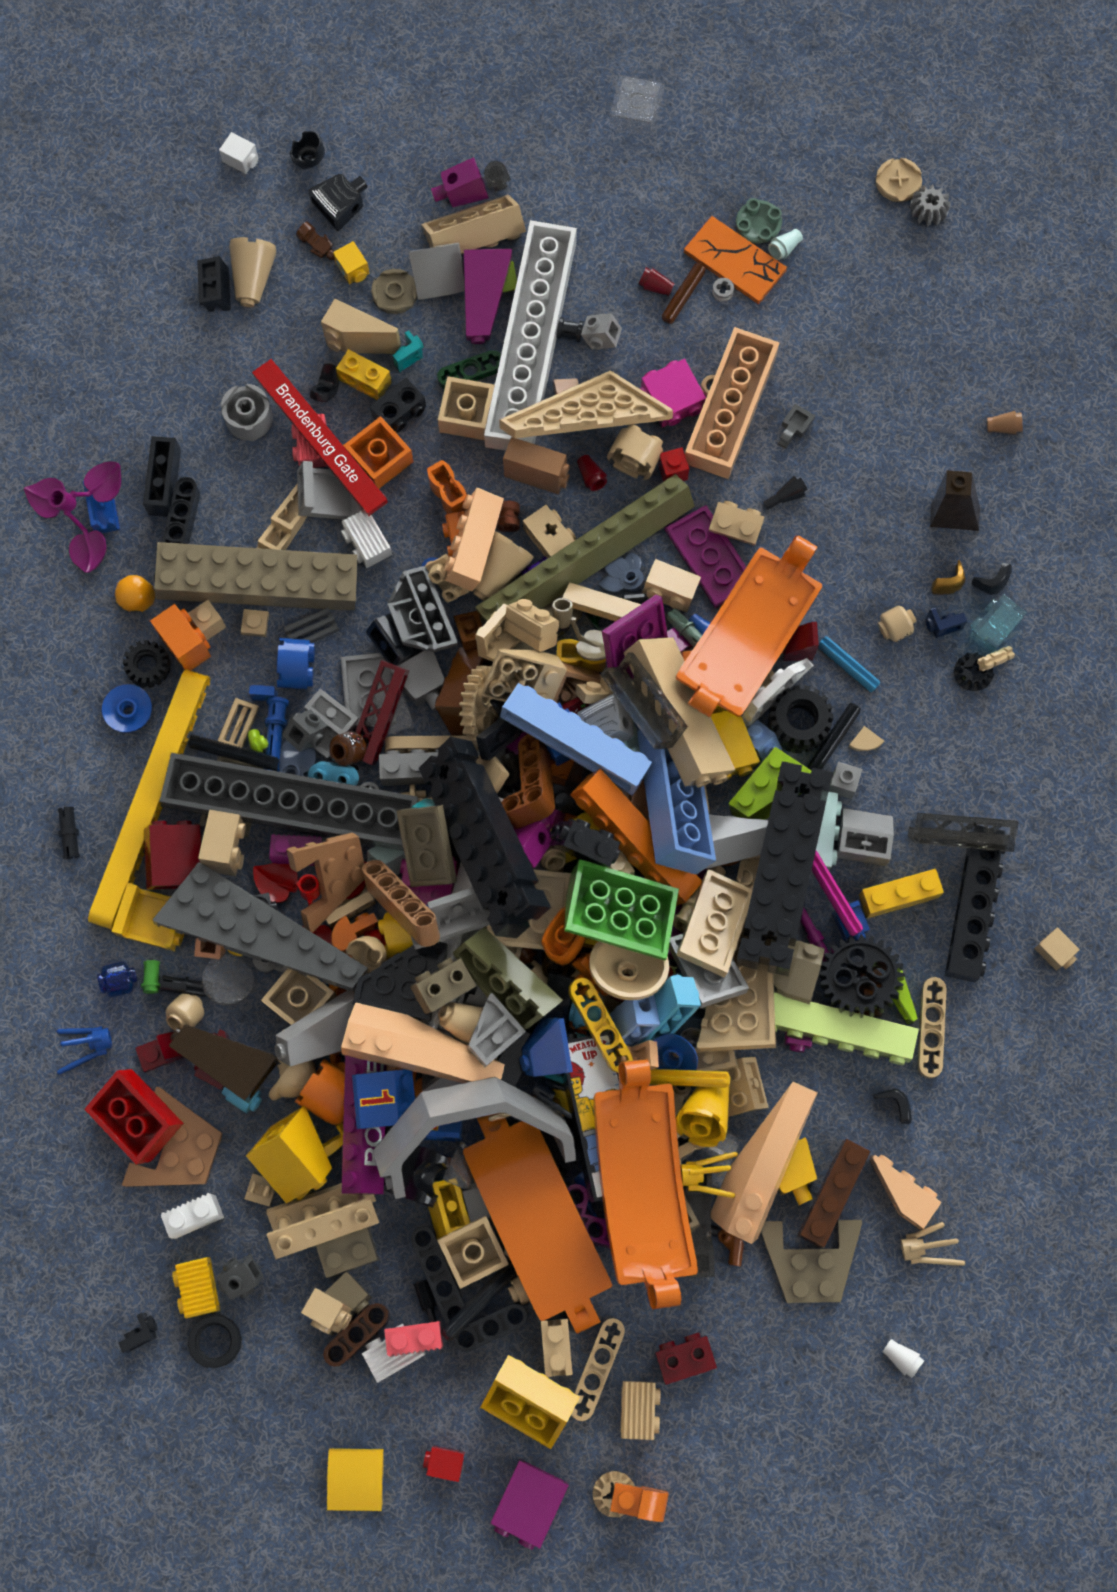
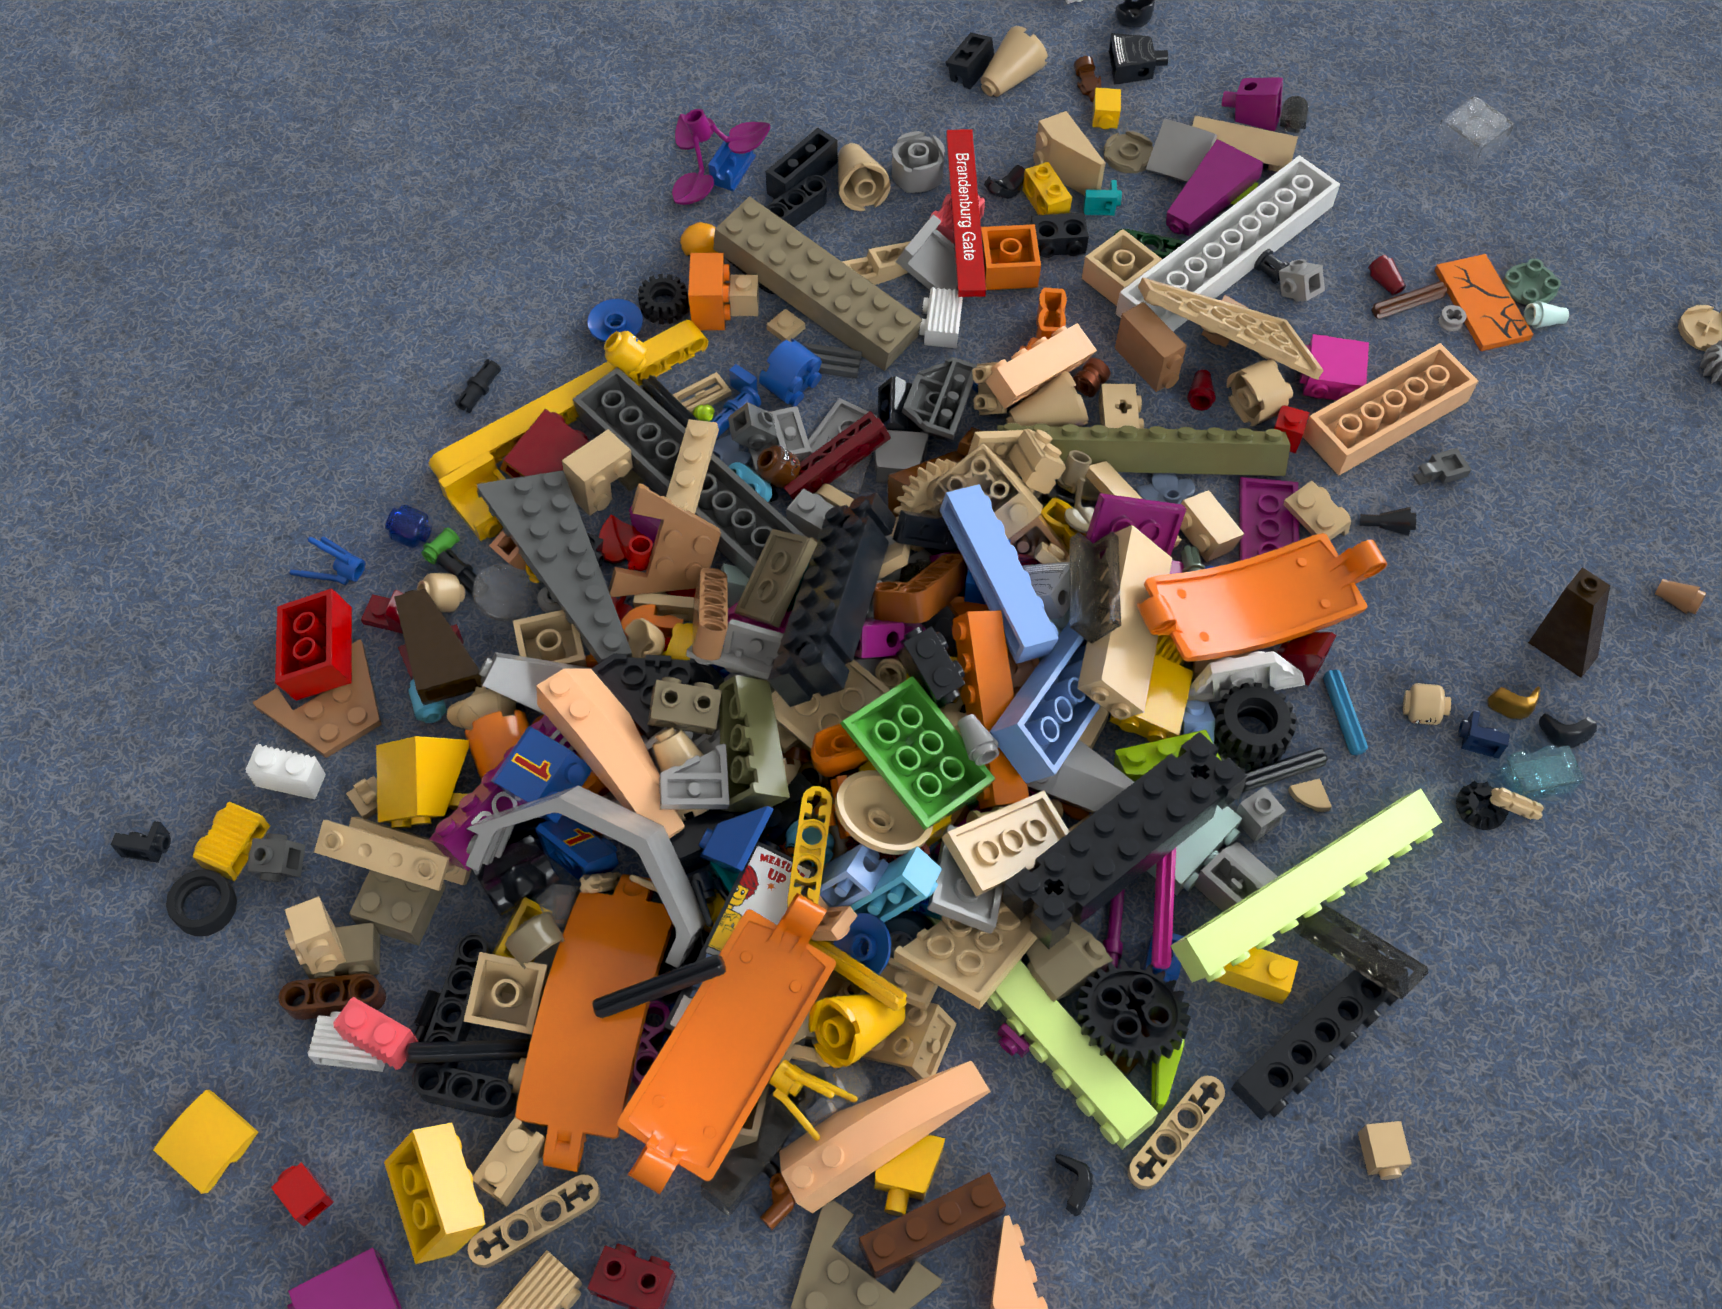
camera: 35 degrees right, 15 degrees down
(166, 736) = (625, 351): none -> yellow head
(212, 455) = (861, 178): none -> tan cone
(295, 800) = (692, 464): none -> tan plate
(468, 1135) = (599, 882): none -> tan axle
(468, 1207) = (533, 938): none -> dark tan hair
(575, 1180) = (659, 986): none -> black axle
(652, 873) = (979, 743): none -> light grey cone
(910, 815) = (1304, 887): none -> yellowish green brick

